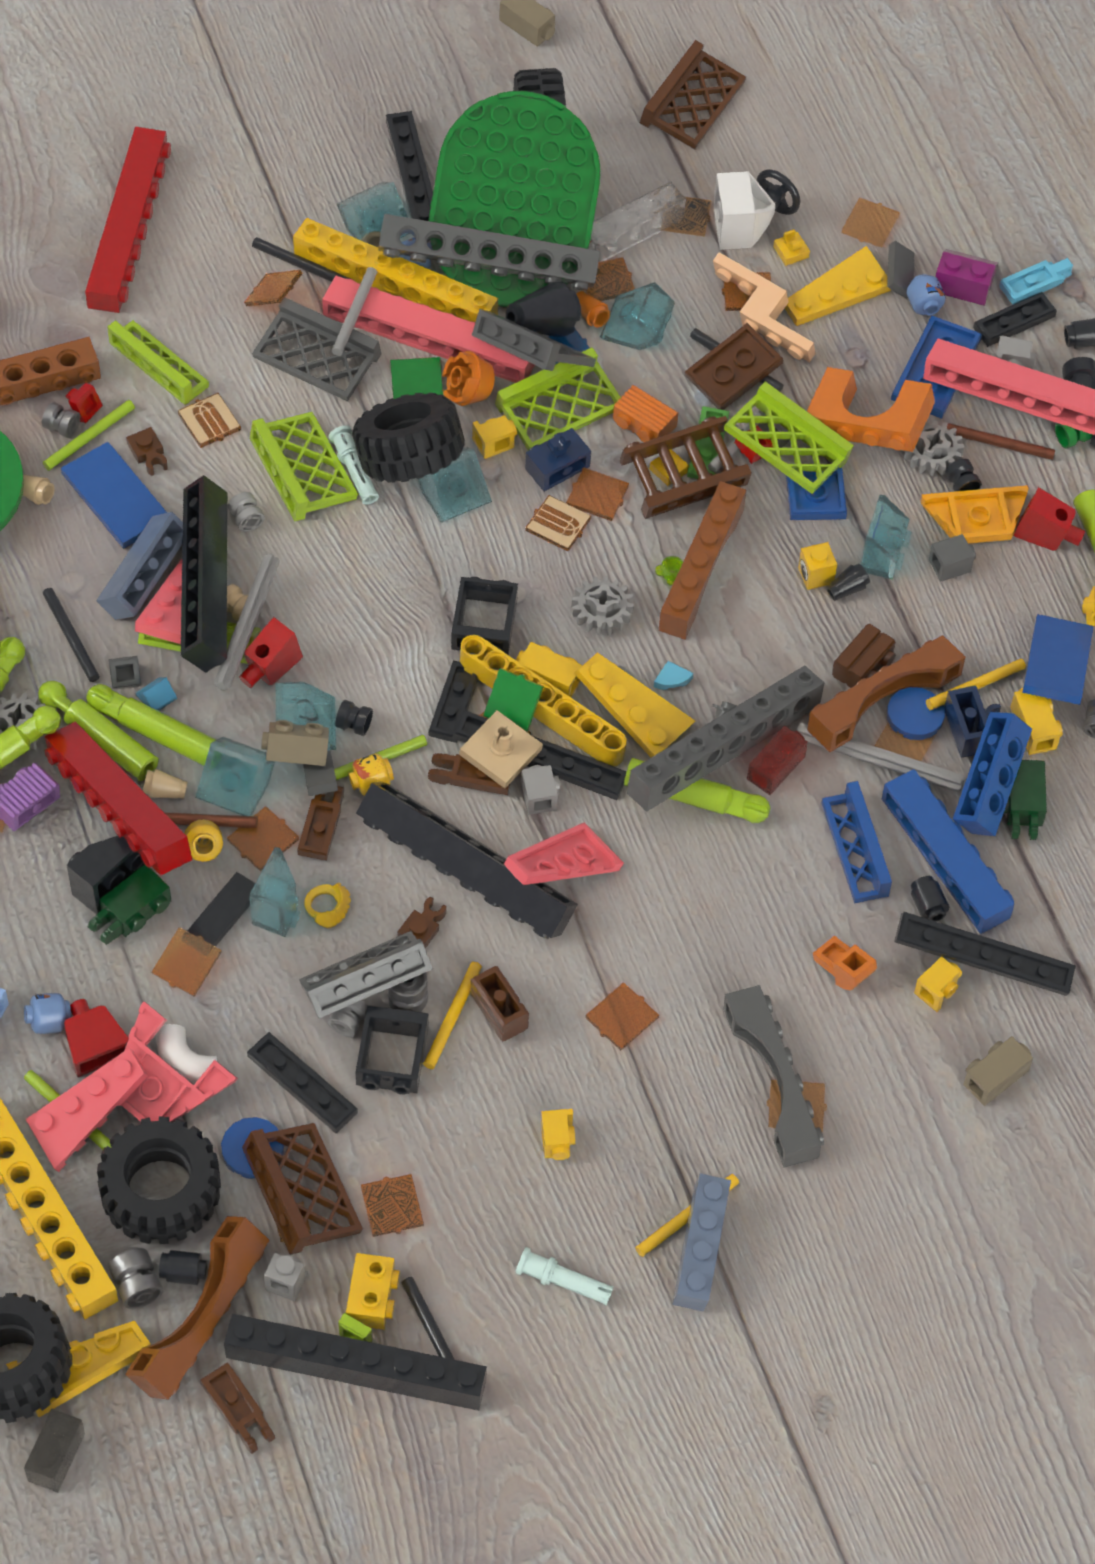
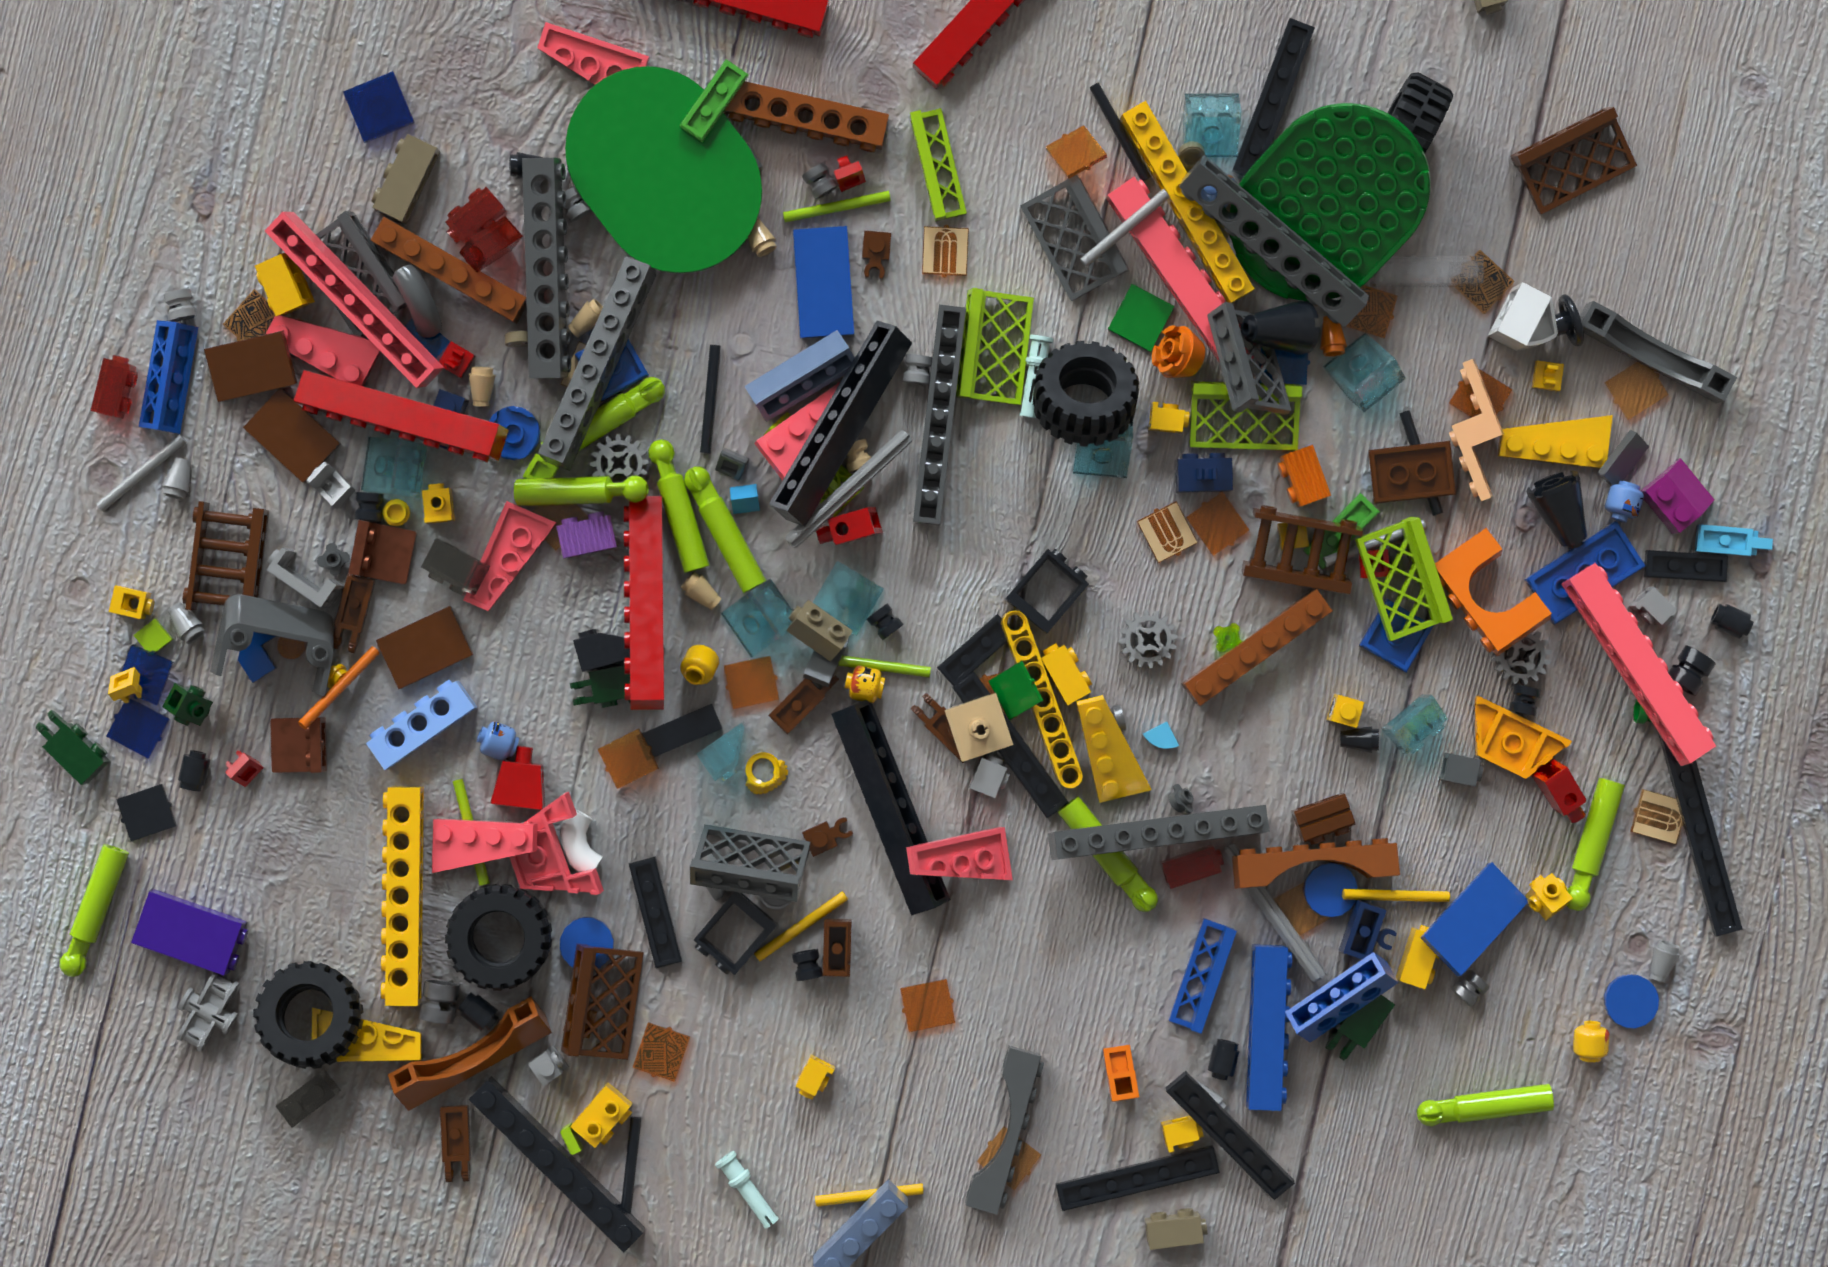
camera: 35 degrees right, 30 degrees up
(219, 820) = (709, 636): copper bar -> none
(291, 532) = (939, 415): none -> dark grey brick
(483, 1041) = (807, 965): none -> black wheel
(879, 324) = (1561, 507): none -> black cone
(913, 181) = (1674, 364): none -> dark grey arch
(929, 1051) = (1137, 1178): none -> black tile
(1003, 442) = (1584, 679): copper bar -> none

